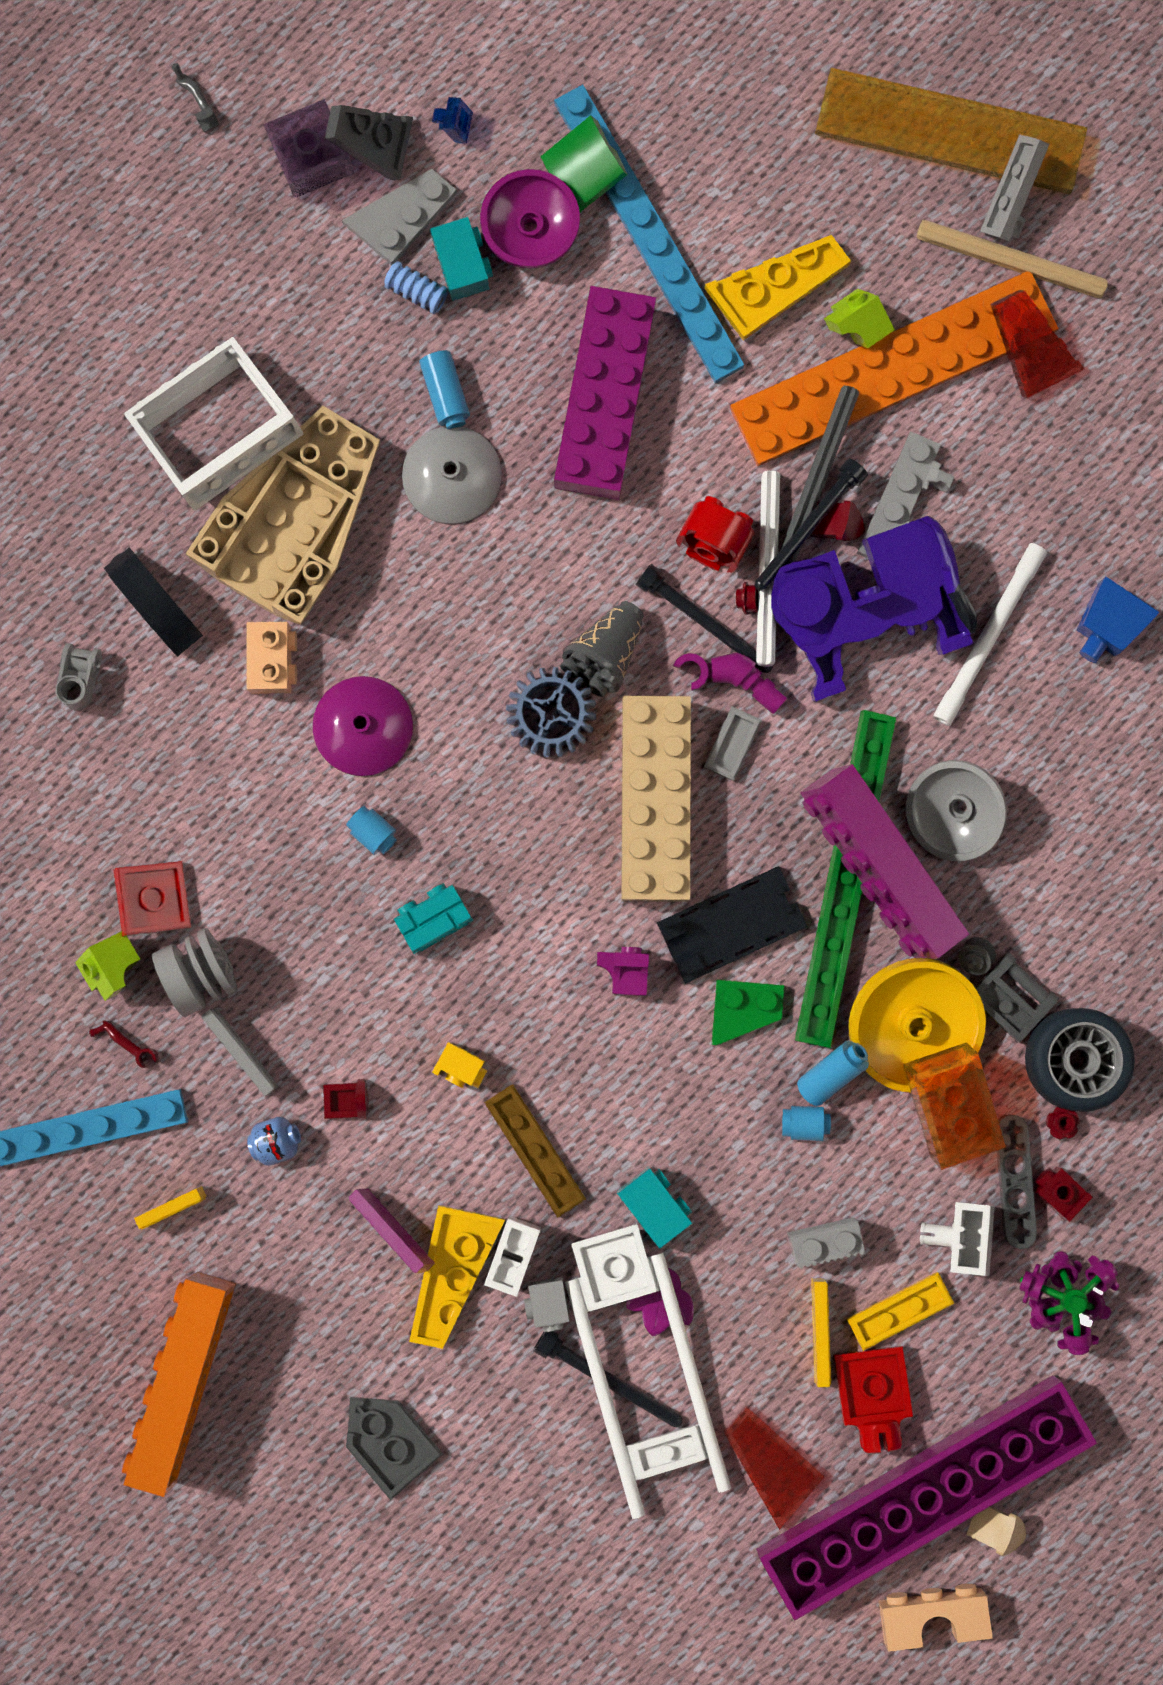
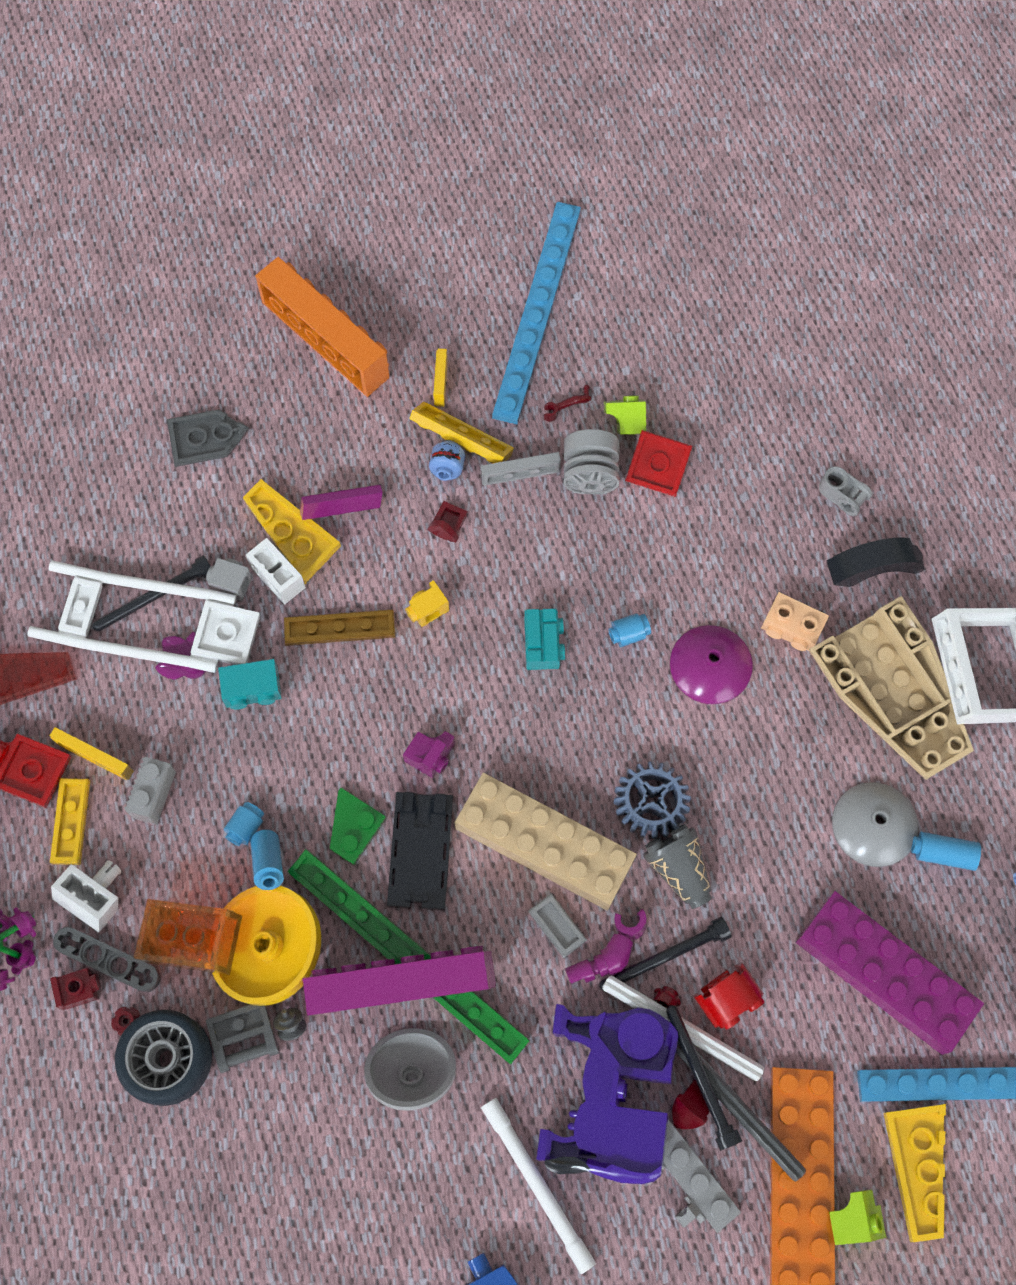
camera: 115 degrees right, 15 degrees down
(230, 1144) = (462, 433): none -> yellow plate

